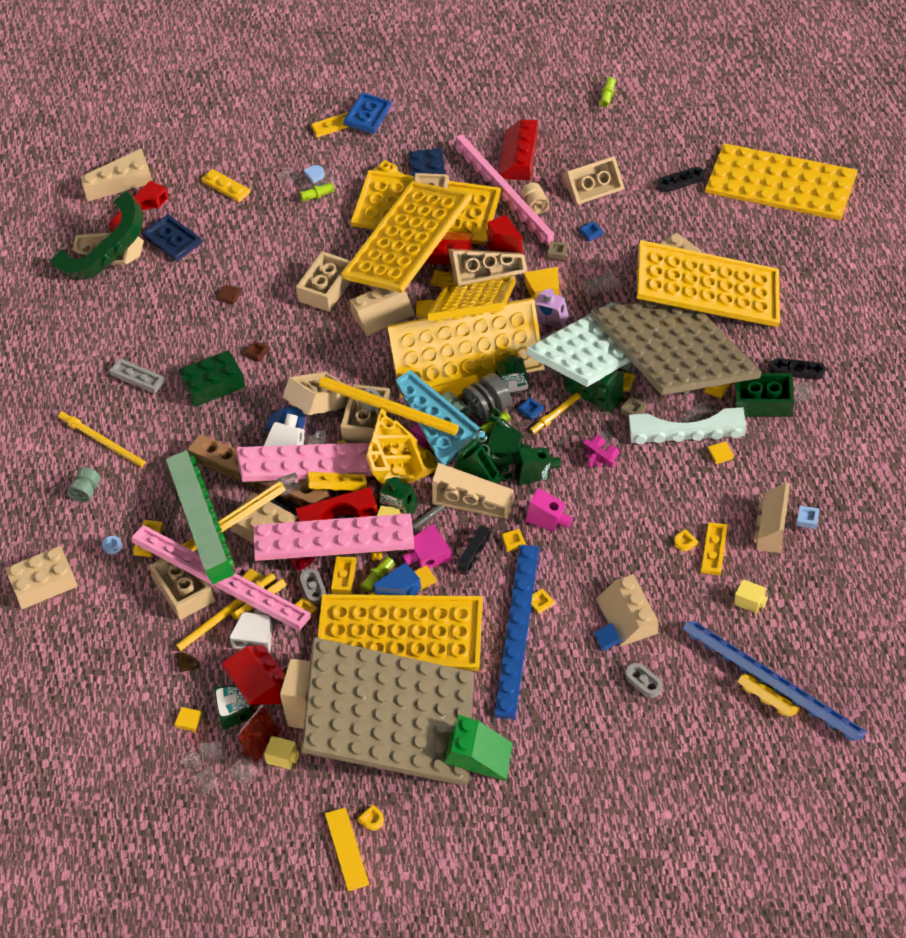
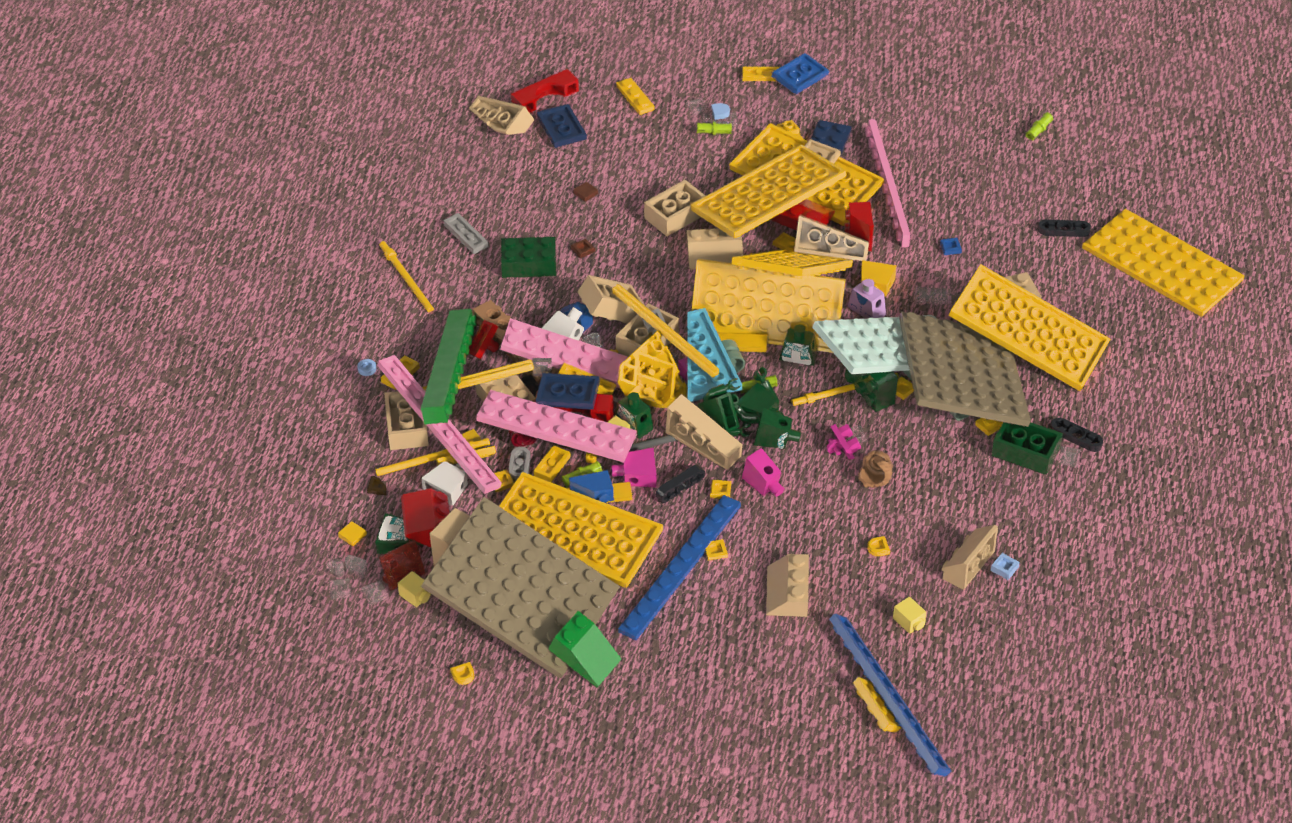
camera: 20 degrees right, 5 degrees down
(41, 577) = (291, 371): tan brick -> none
(84, 484) = (370, 306): sand green wheel -> none
(109, 248) = (500, 113): dark green arch -> none
(117, 176) = (541, 56): tan wedge -> none
(214, 475) = (483, 340): none -> red tile
(327, 498) = (568, 391): none -> dark blue plate
(347, 849) = (427, 689): yellow tile -> none
(486, 395) = (769, 355): dark grey wheel -> none
(519, 150) = (923, 152): red slope -> none
(530, 408) = (802, 382): blue tile -> none
(534, 197) = (912, 198): tan wheel -> none
(557, 250) = (908, 252): dark tan plate -> none
(594, 180) = (978, 201): tan slope -> none
(607, 637) = (758, 601): blue tile -> none
(633, 406) = (897, 415): dark tan plate -> none
(645, 468) = (875, 469): none -> medium nougat hair
(646, 680) = (770, 651): light grey plate -> none
(647, 428) = (975, 458): light aqua arch -> none
(700, 412) = (955, 443): clear tile -> none
(714, 548) = (902, 563): yellow tile -> none
(720, 452) = (958, 482): yellow tile -> none

